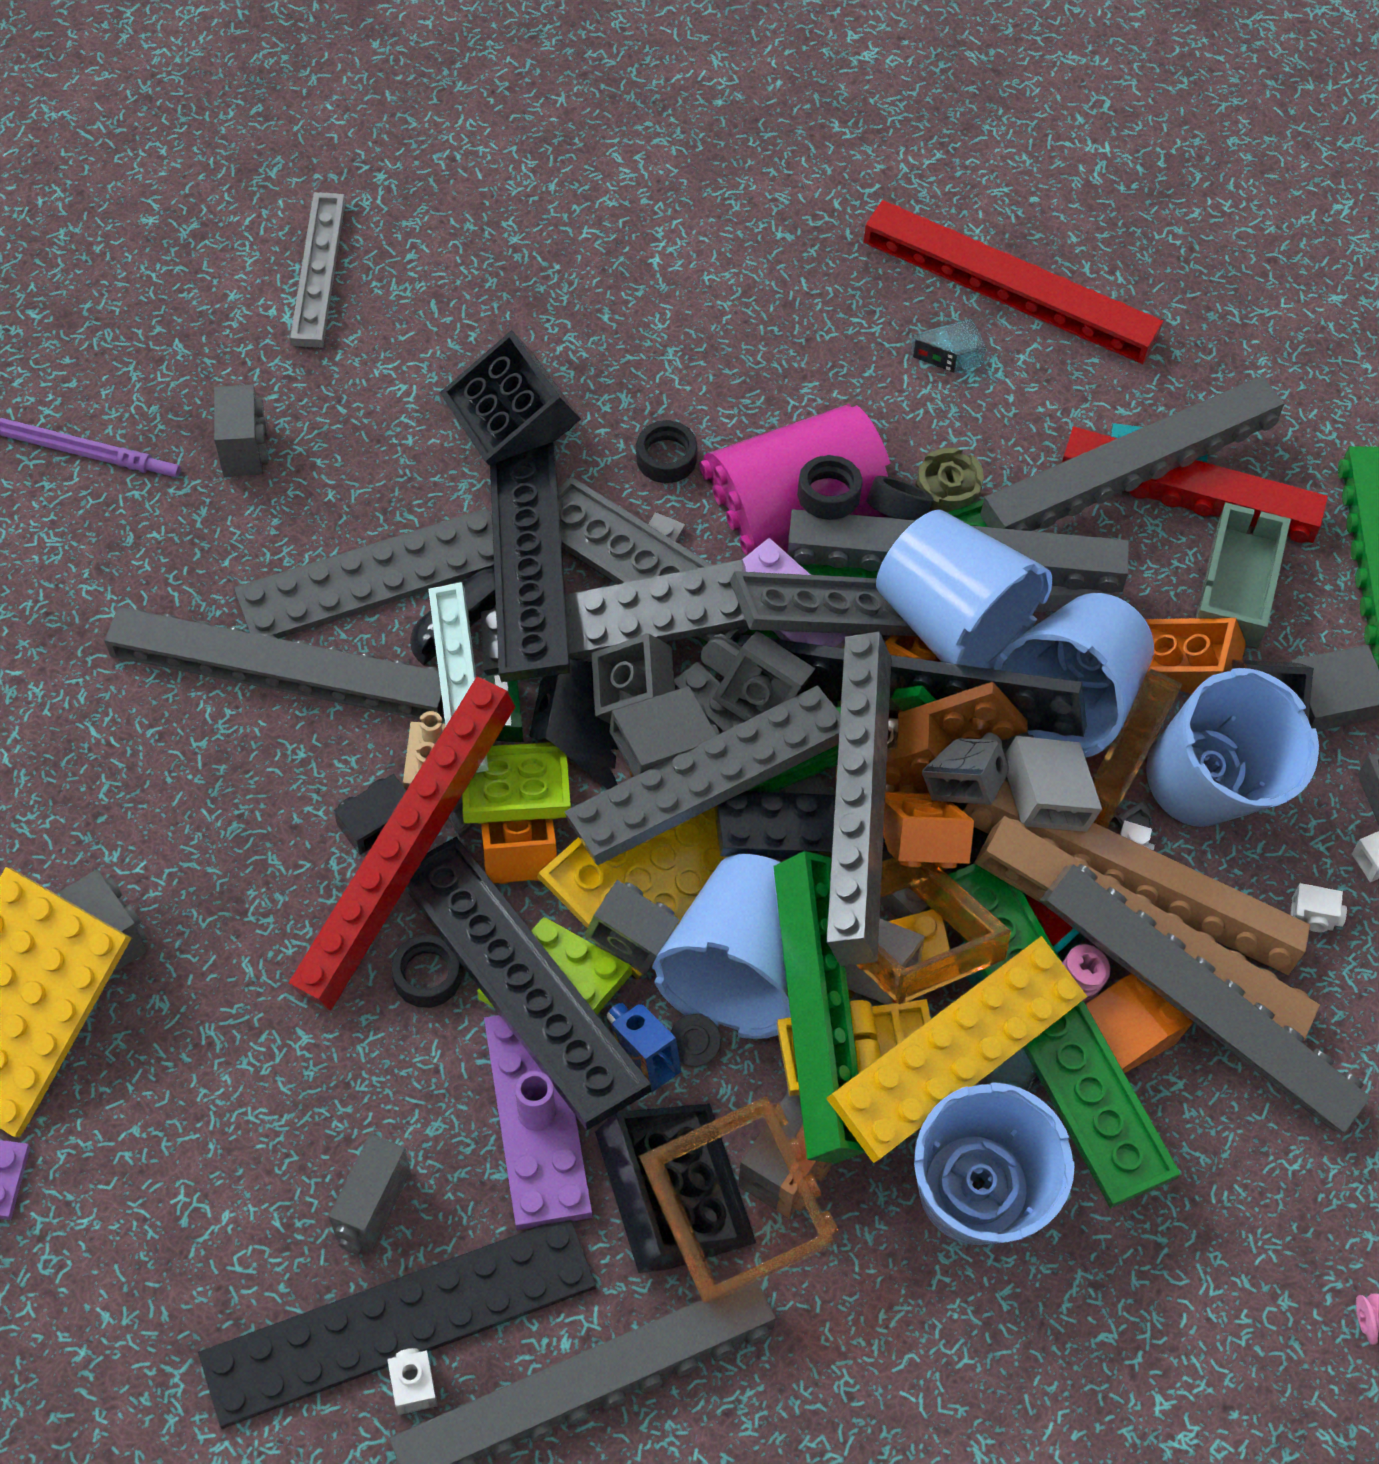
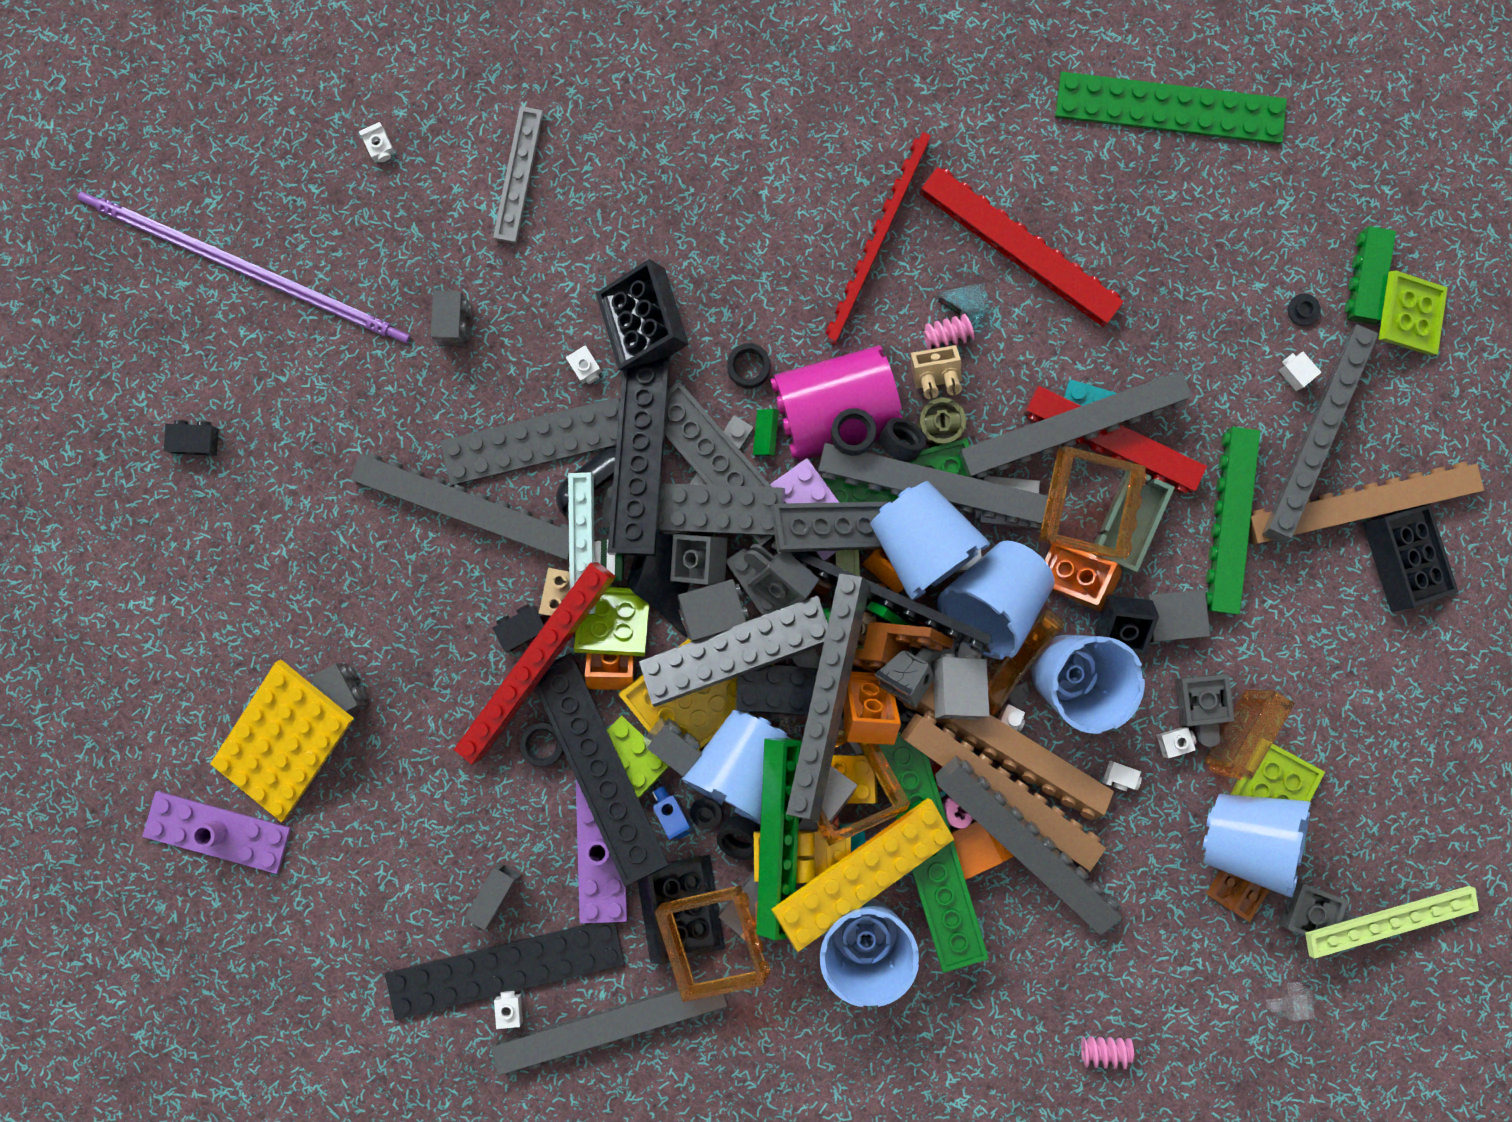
camera: 15 degrees right, 25 degrees up
(121, 249) = (373, 134): none -> white brick
(434, 472) = (584, 365): none -> white brick
(704, 525) = (765, 432): none -> green tile
(738, 1081) = (733, 847): none -> black tyre
(813, 301) = (872, 246): none -> red plate
(928, 423) = (937, 368): none -> tan brick
(936, 380) = (948, 332): none -> bright pink piece
(1168, 122) = (1170, 108): none -> green plate
(1174, 588) = (1057, 497): none -> clear orange window

